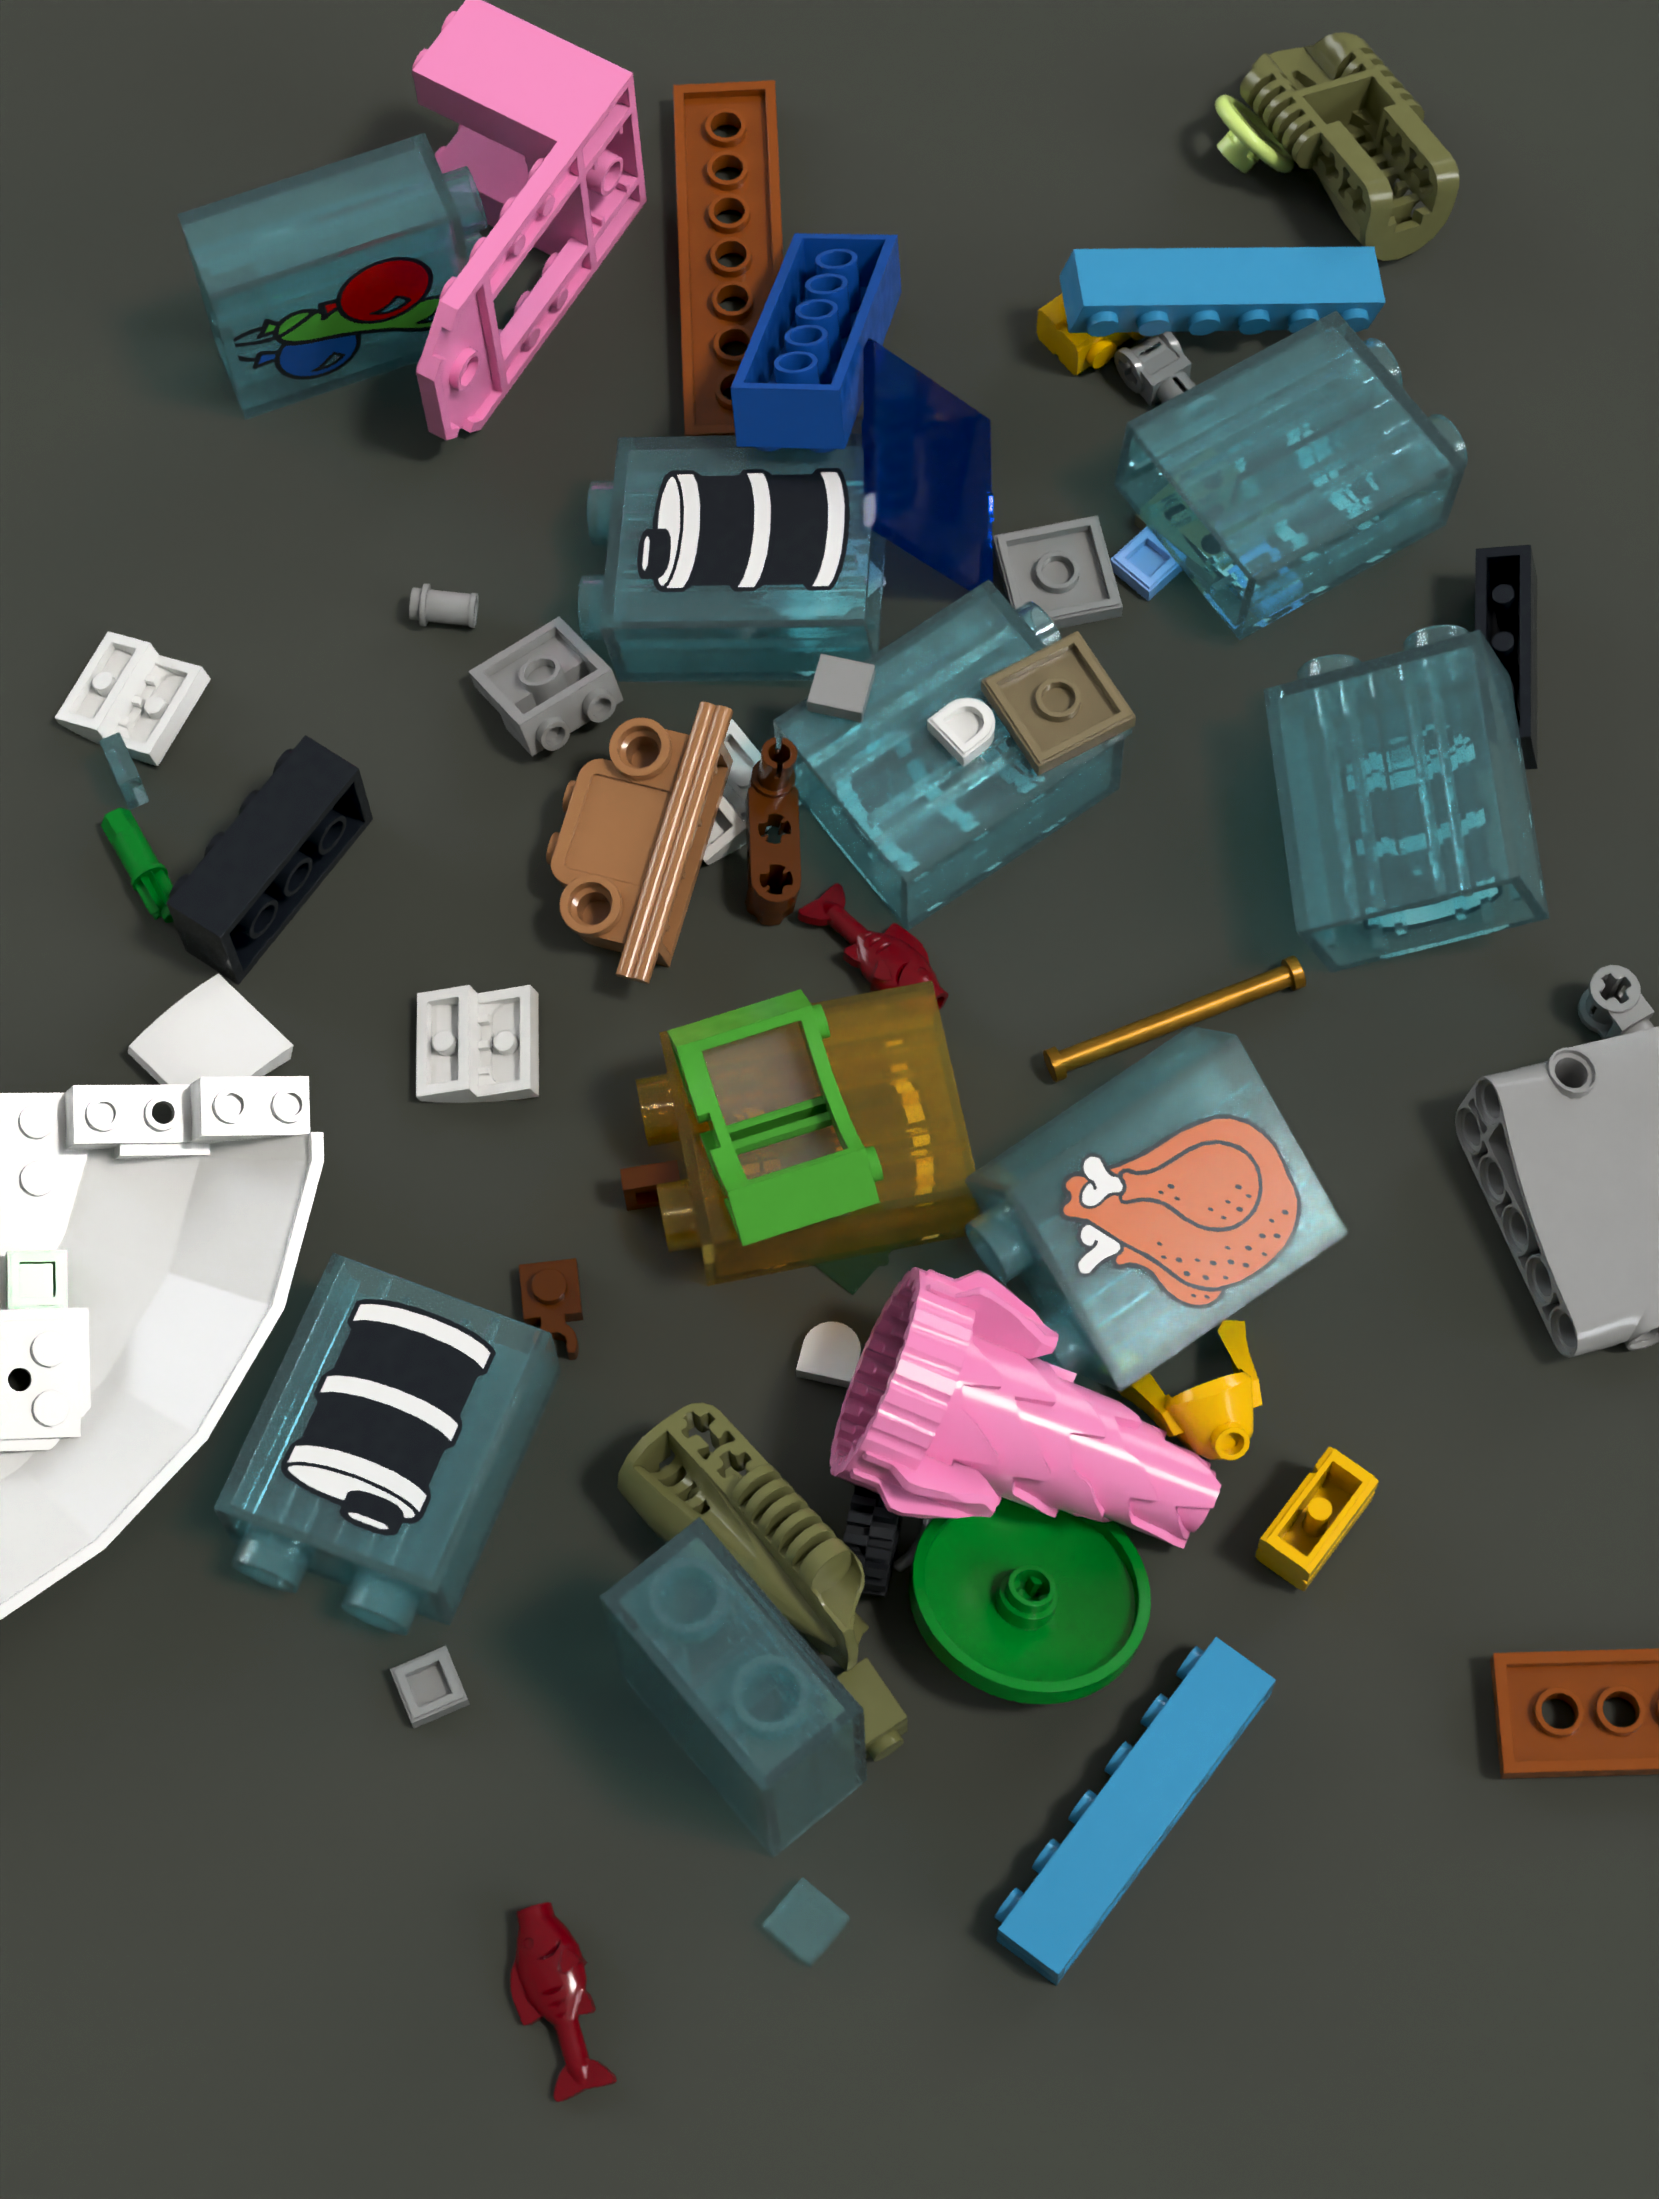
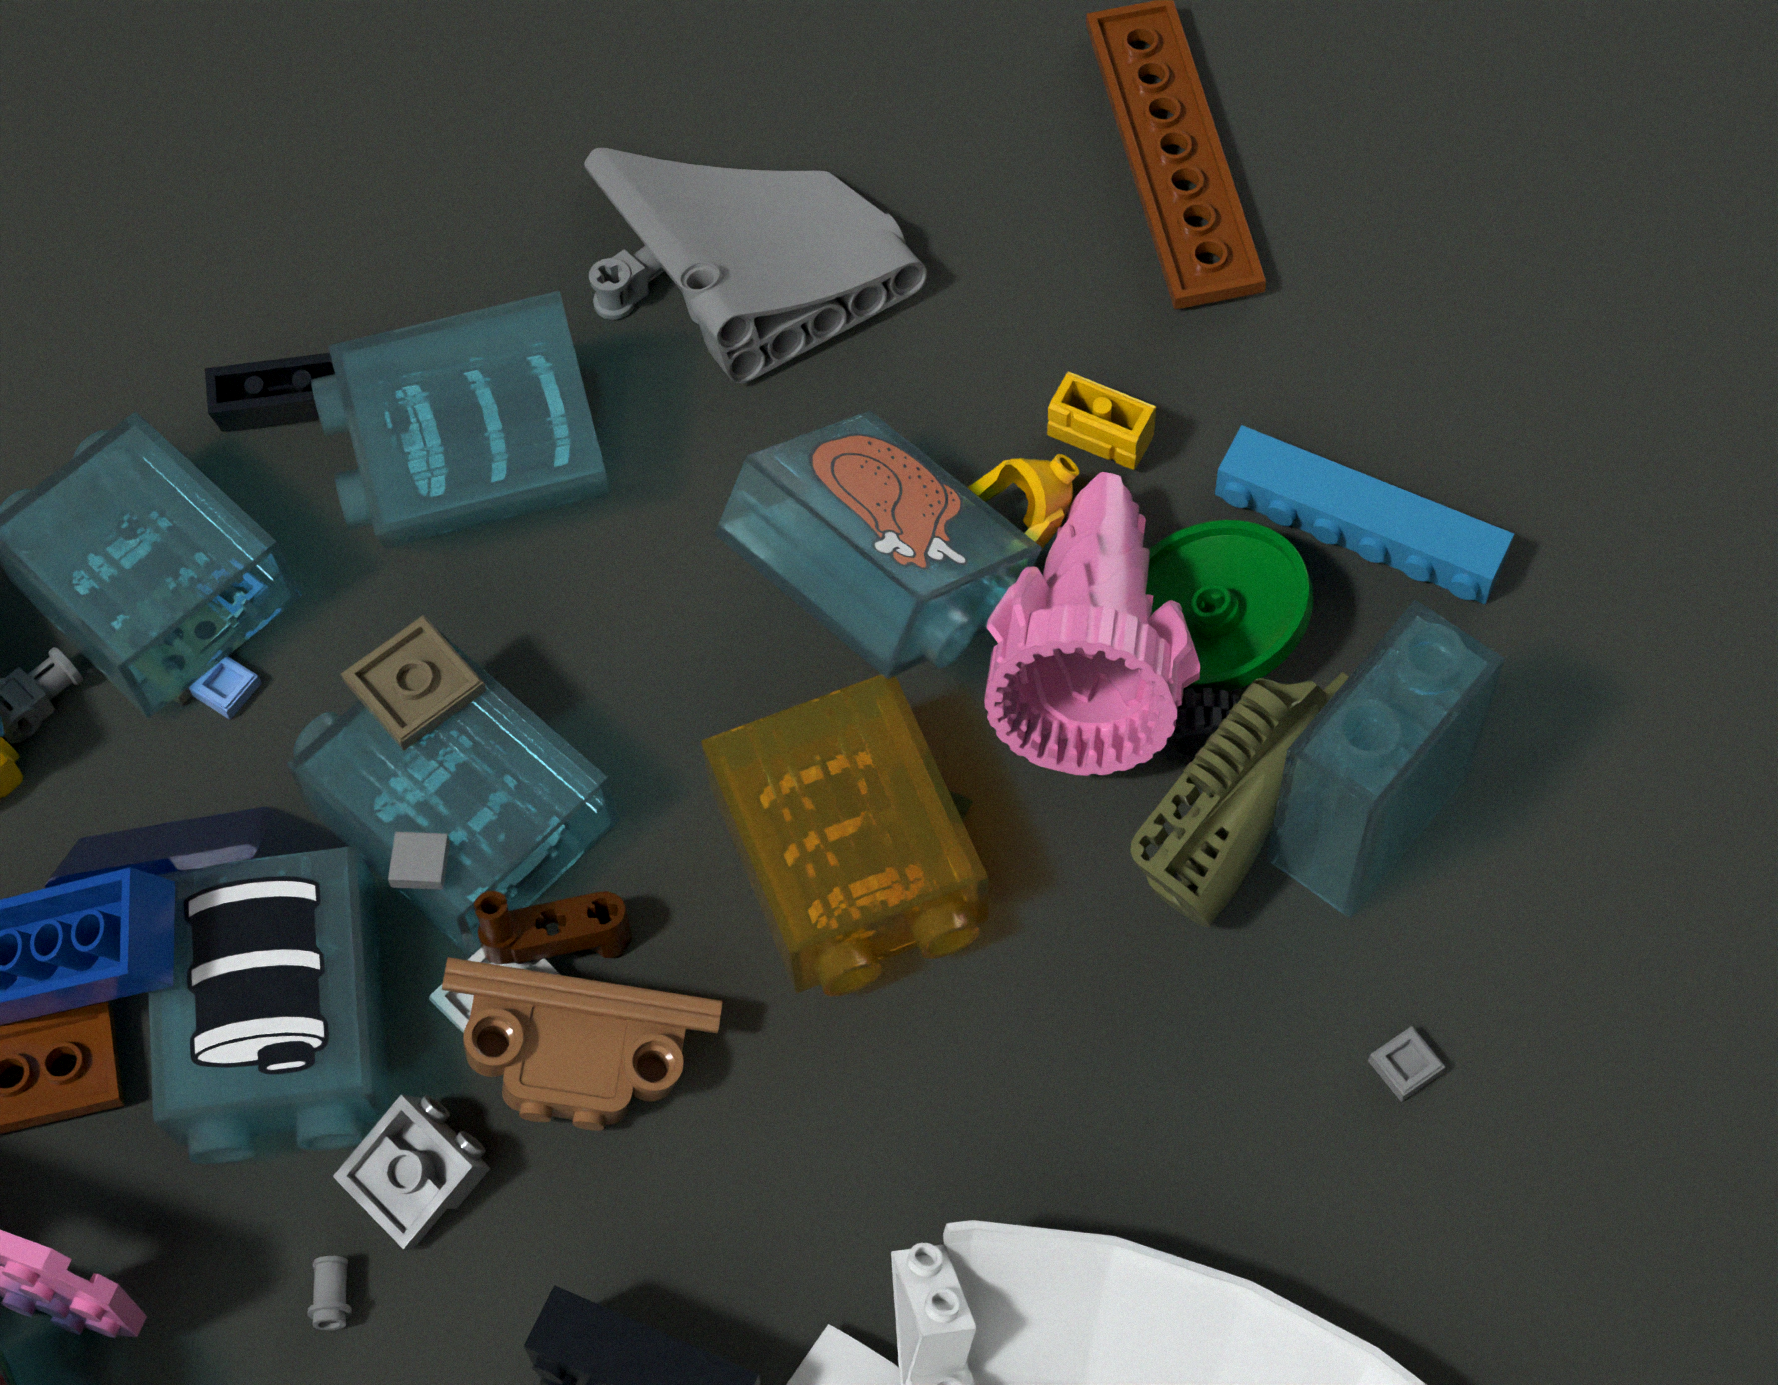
camera: 100 degrees left, 5 degrees down
(386, 1445) = (1217, 1127): clear light blue brick -> none
(477, 1045) = (796, 1158): white slope -> none
(551, 1985) = (1626, 909): dark red animal -> none
(552, 1299) = (1032, 1041): reddish brown plate -> none
(641, 1181) = (912, 970): reddish brown tile -> none
(774, 1117) = (870, 821): bright green window -> none
(806, 1922) = (1516, 734): clear light blue tile -> none
(829, 1354) = (1033, 804): white tile -> none
(883, 959) = (652, 824): dark red animal -> none
(964, 728) = (449, 752): white tile -> none
(1060, 570) = (241, 755): light grey tile -> none
(1175, 1018) = (731, 674): pearl gold bar -> none

